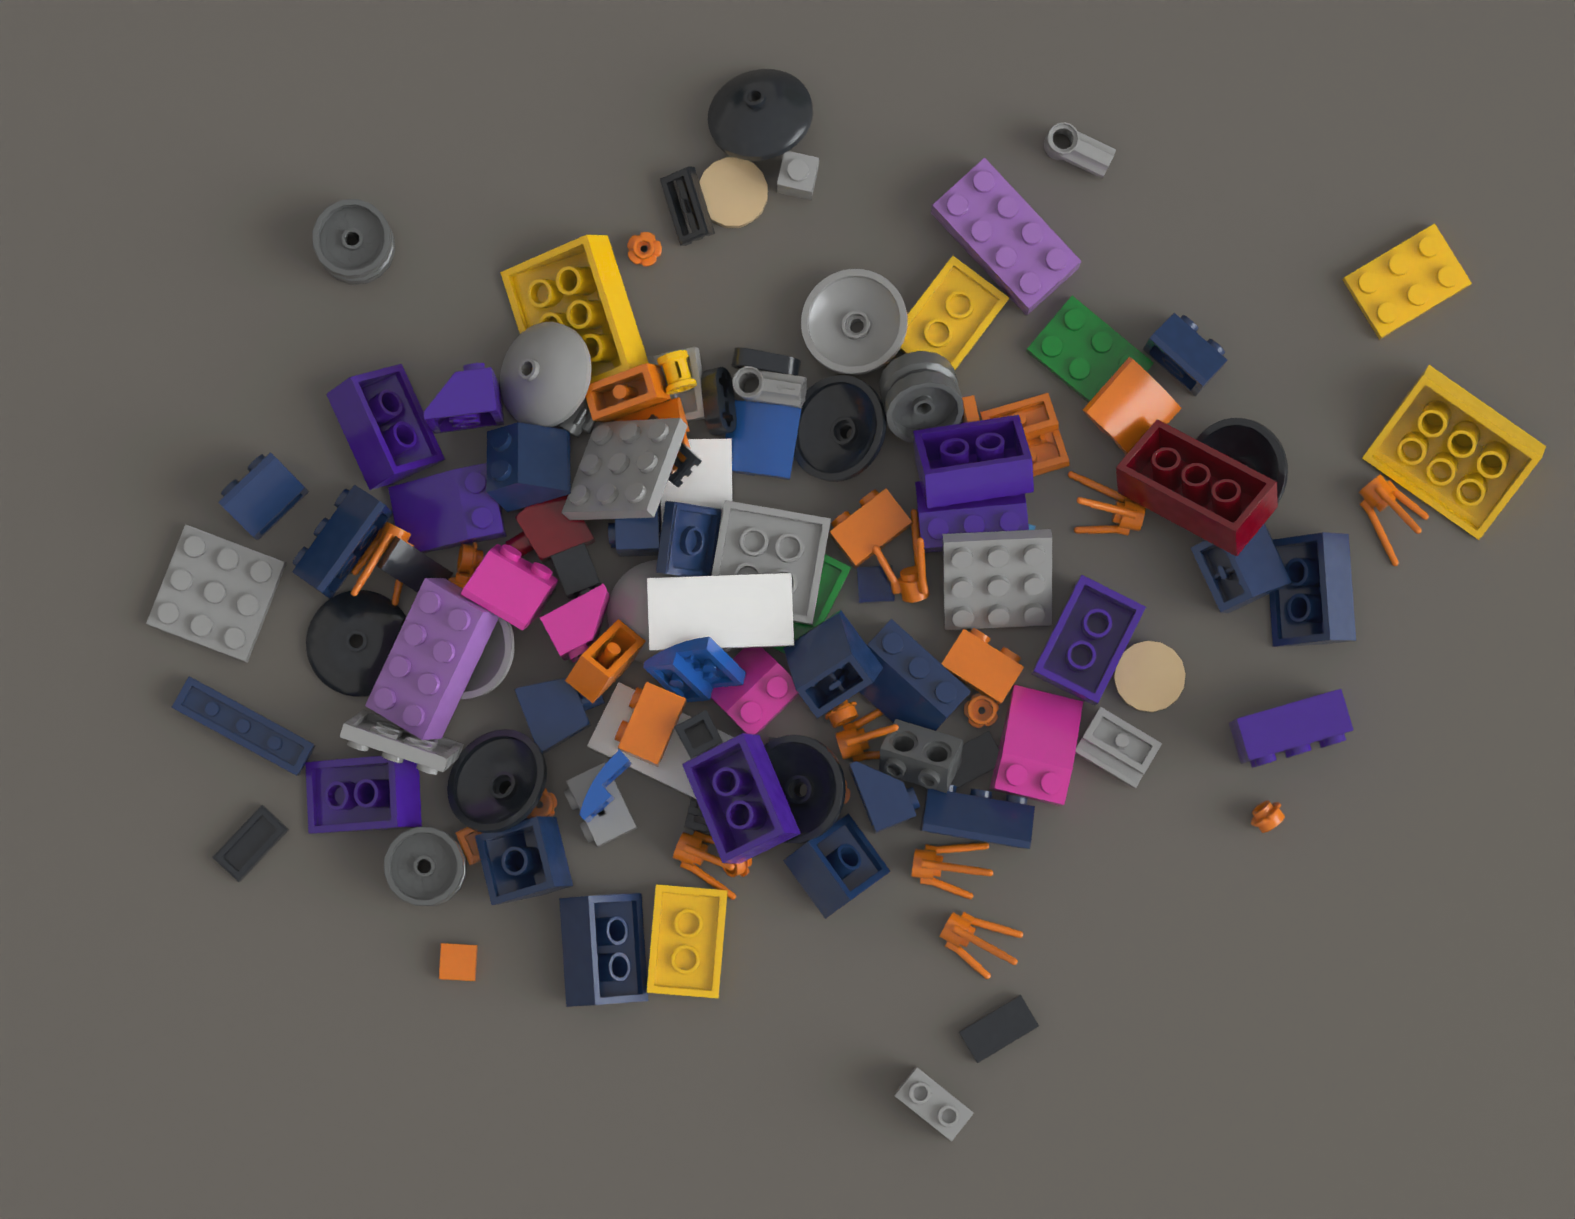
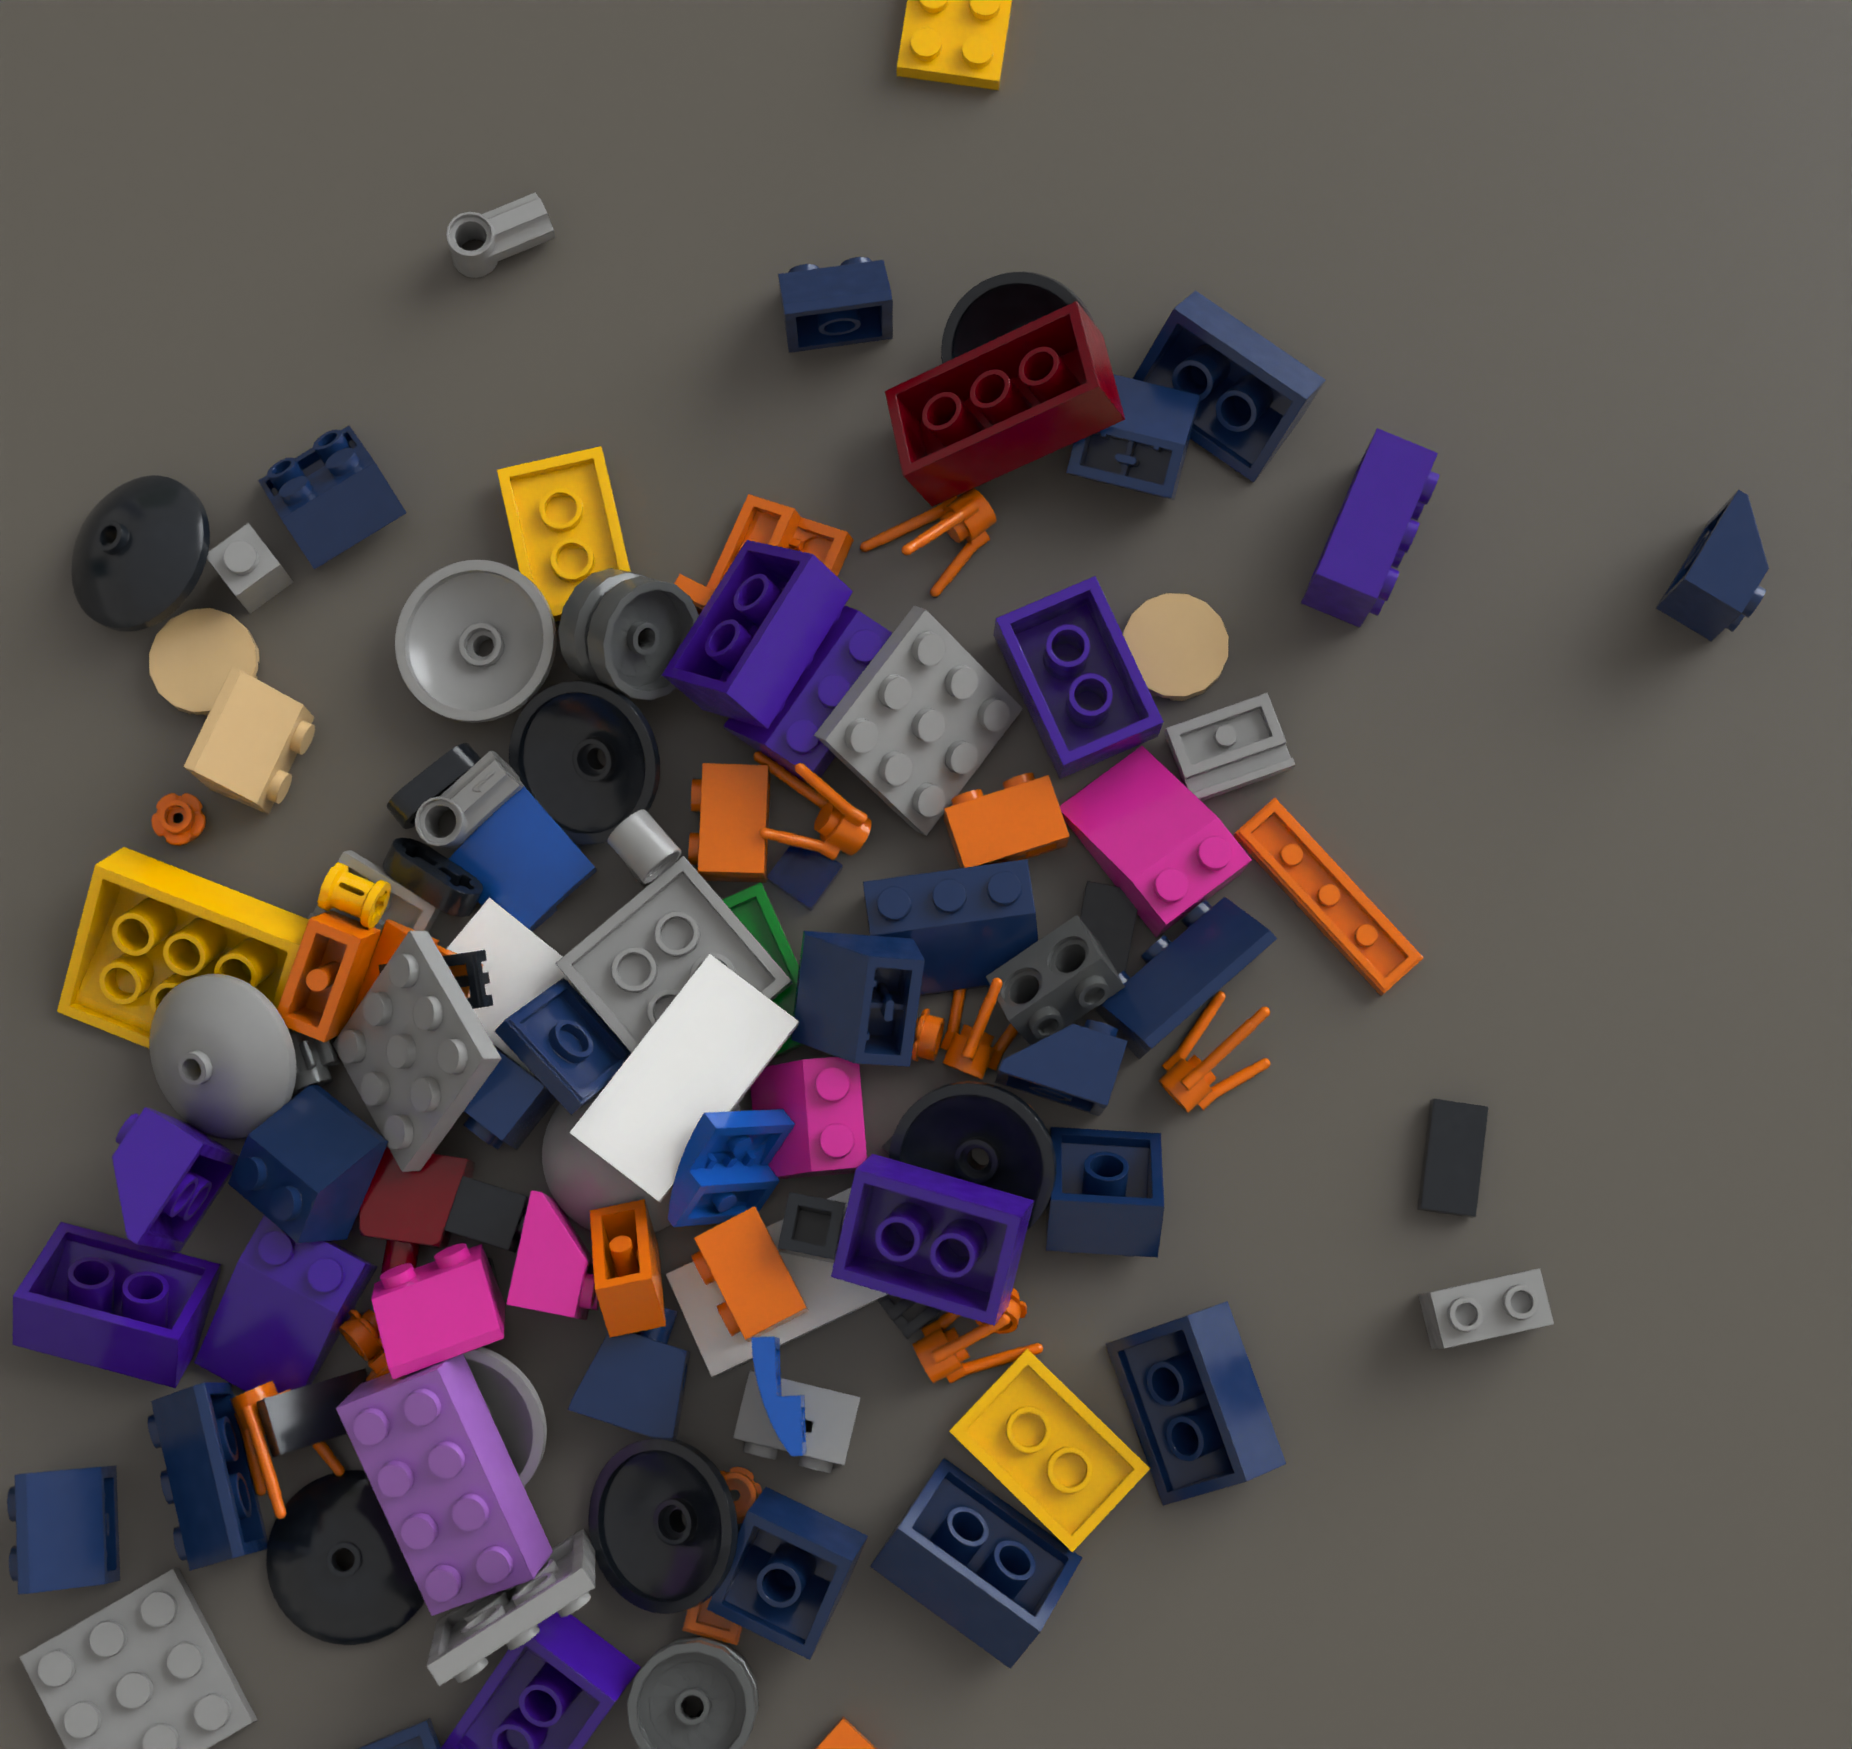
camera: 55 degrees left, 5 degrees down
(692, 204) = (164, 702): black tile -> none
(711, 255) = (250, 742): none -> tan slope
(768, 996) = (1196, 1404): none -> dark blue slope
(818, 495) = (644, 847): none -> light grey piece
(869, 183) = (331, 496): none -> dark blue slope
(960, 932) = (1300, 1109): orange plant -> none
(975, 718) = (1060, 856): orange plate -> none
(1005, 236) = (526, 393): medium lavender brick -> none
(1082, 859) = (1328, 896): none -> orange tile
(1083, 349) = (747, 415): green plate -> none
(1130, 405) = (843, 412): orange slope -> none
(1267, 816) = (1448, 643): orange plate -> none
(1382, 494) = (1179, 223): orange plant -> none
(1417, 927) = (1720, 573): none -> dark blue slope
(1454, 452) = (1198, 106): yellow slope -> none

